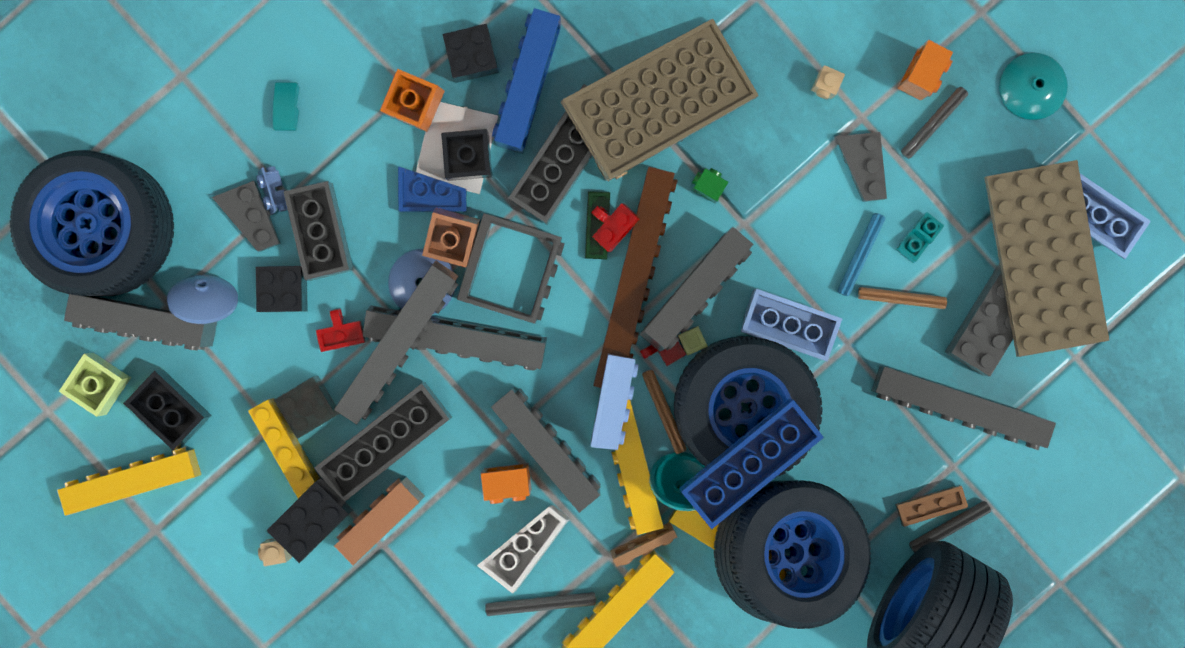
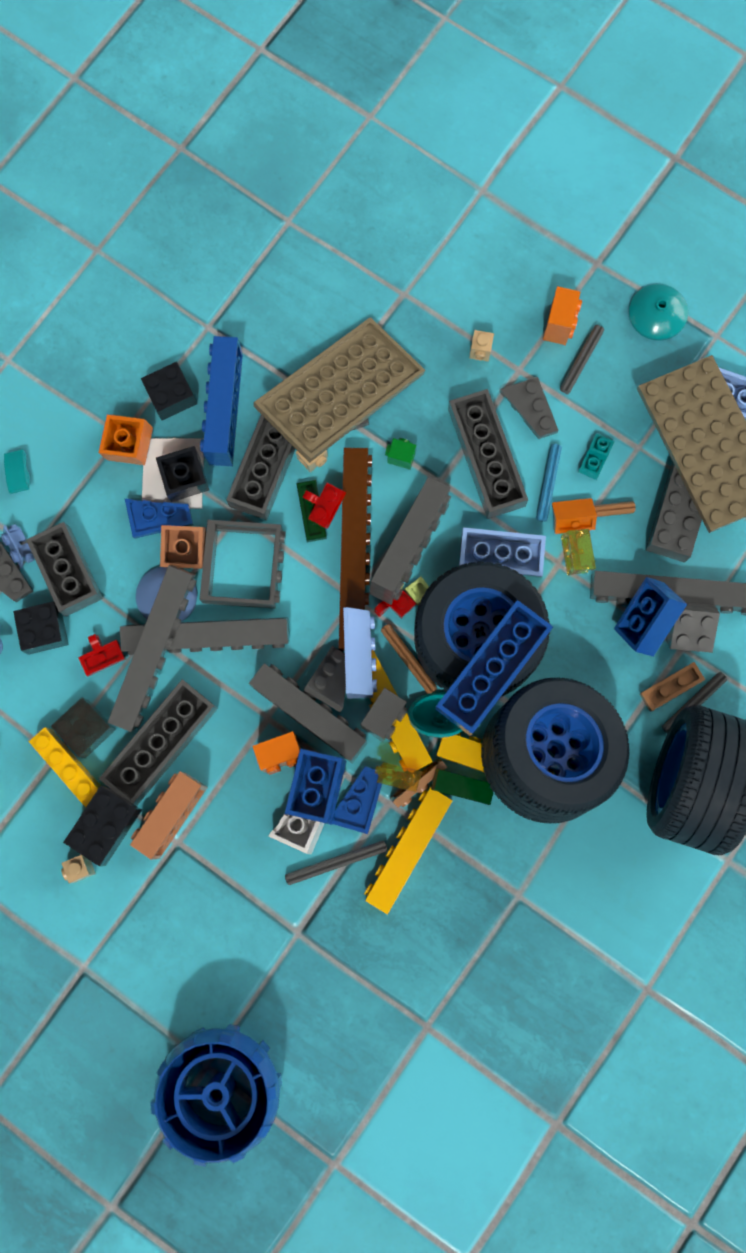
camera: 10 degrees left, 10 degrees down
(537, 532) = (315, 786): none -> blue brick
(576, 418) = (330, 680): none -> dark grey wing
(579, 549) = (360, 802): none -> blue wing
(625, 474) = (384, 714): none -> dark grey brick
(625, 535) = (398, 776): none -> clear yellow hinge
(687, 560) = (462, 787): none -> dark green tile
(803, 208) = (487, 454): none -> dark grey brick
(872, 339) = (578, 551): none -> clear yellow hinge
(878, 298) = (574, 515): none -> orange panel
(928, 433) = (650, 616): none -> blue brick
(970, 450) = (695, 628): none -> dark grey brick

